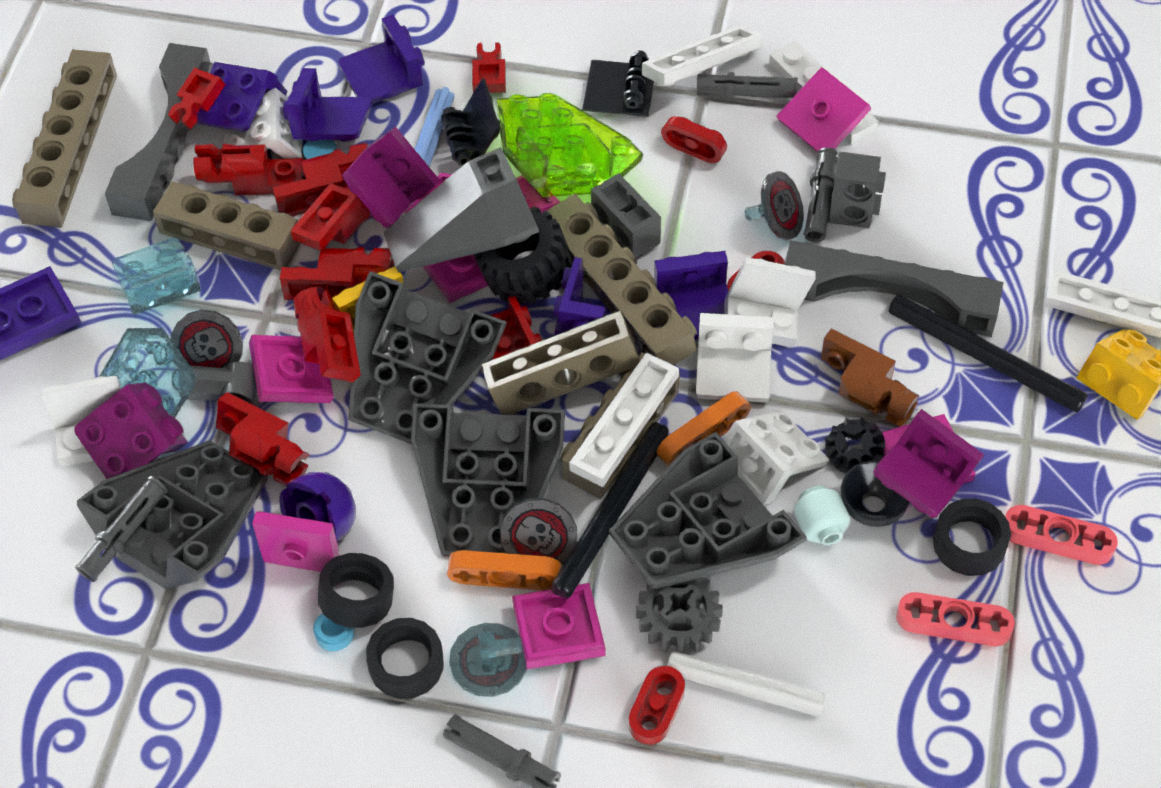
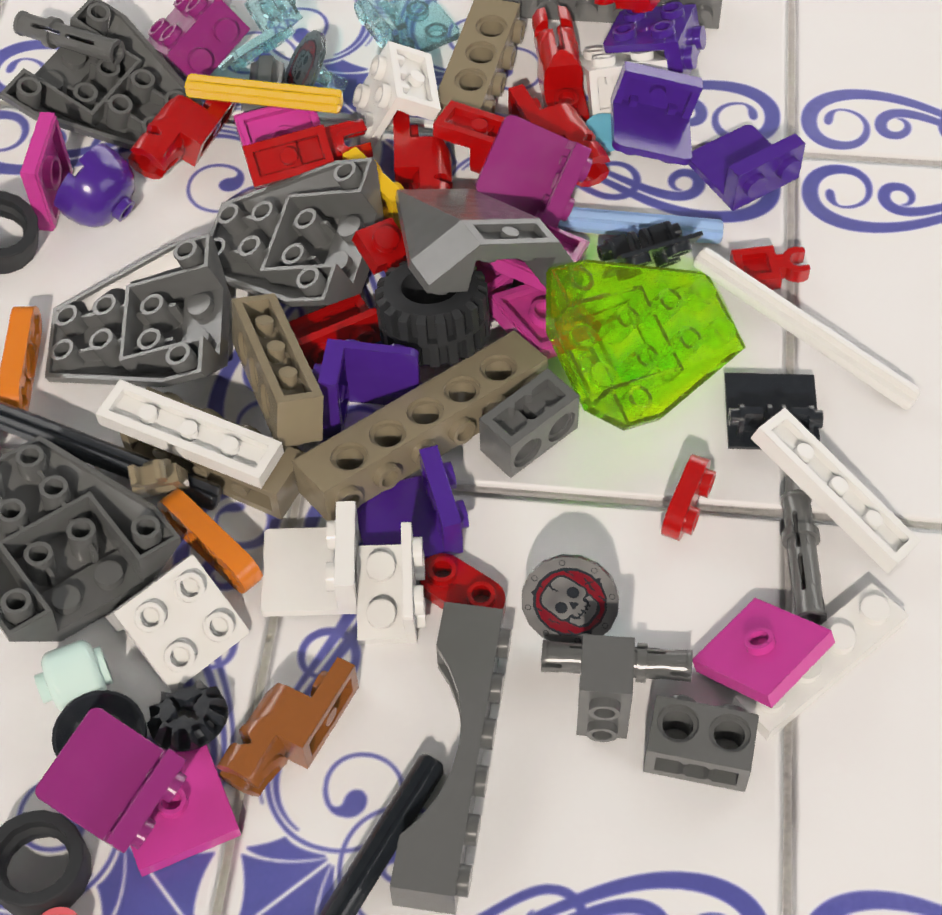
camera: 85 degrees right, 0 degrees up
(249, 364) = (264, 93): none -> yellow axle
(261, 281) = (396, 81): none -> white bracket
(449, 289) = (381, 245): none -> red plate
(539, 529) = (54, 378): shield -> none
(556, 52) = (807, 329): none -> white axle
(660, 444) = (157, 478): none -> dark tan plate
(893, 142) = (698, 755): none -> dark grey brick

